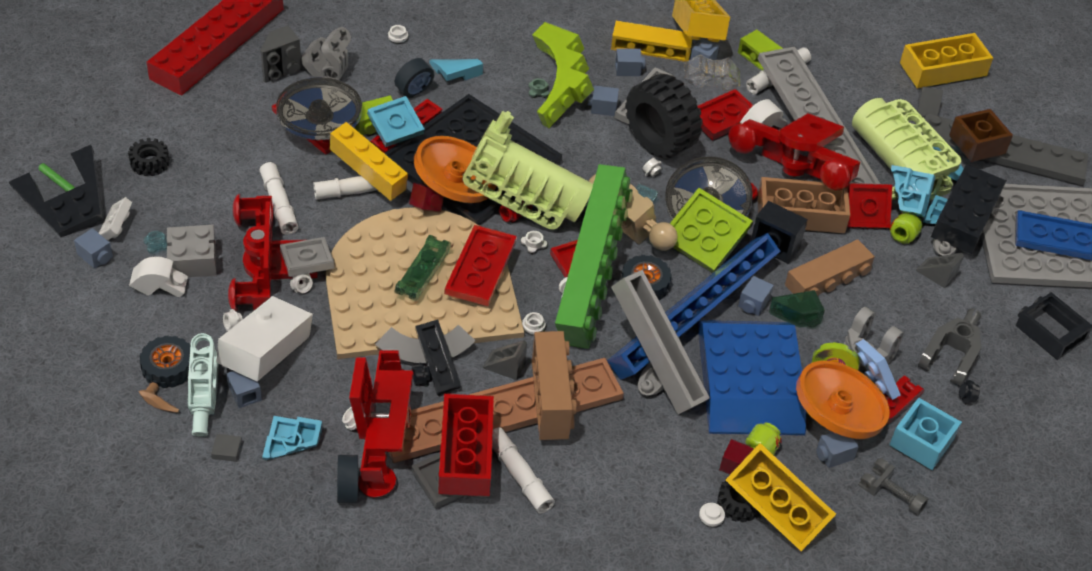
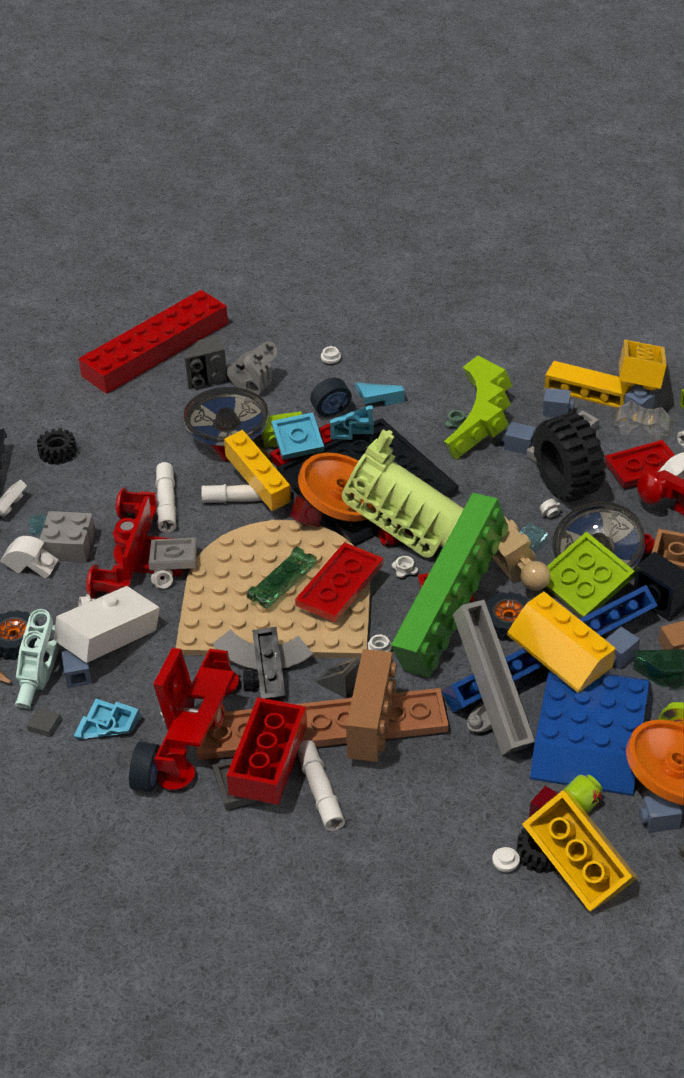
camera: 20 degrees right, 5 degrees down
(449, 102) = (356, 422): none -> medium azure slope
(712, 299) = (562, 642): none -> yellow slope

